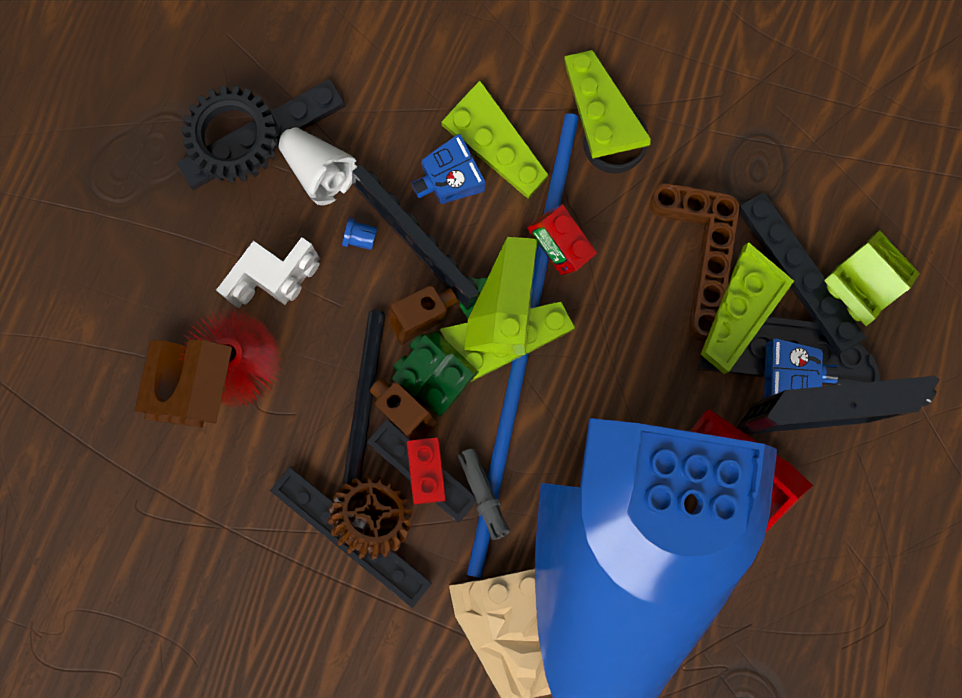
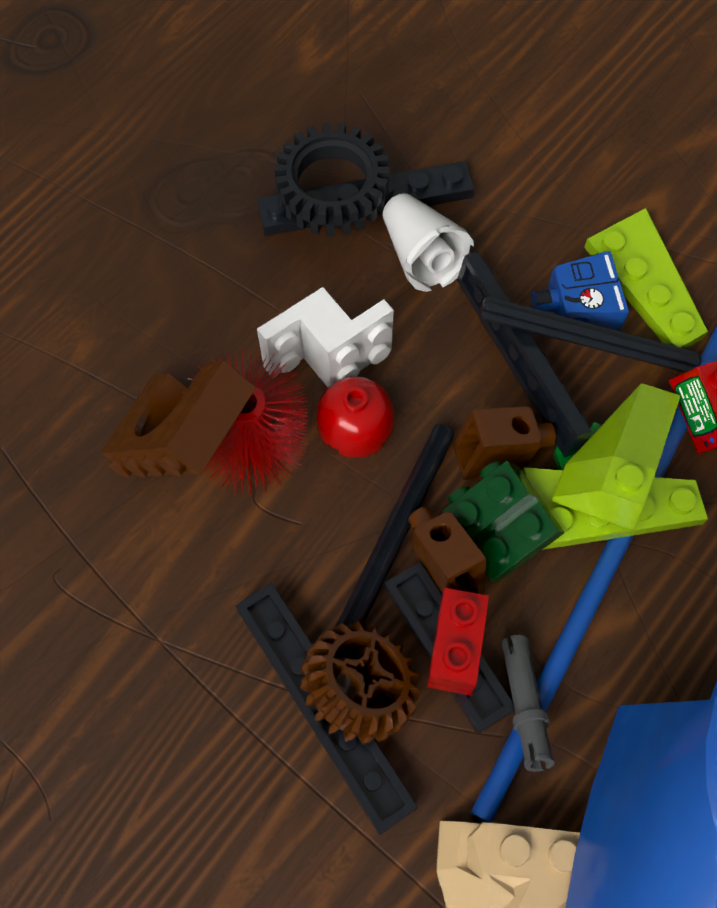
camera: 20 degrees right, 15 degrees down
(309, 323) = (355, 416): none -> red cylinder
(359, 234) = (450, 333): blue bush -> none
(459, 211) = (588, 335): none -> black axle

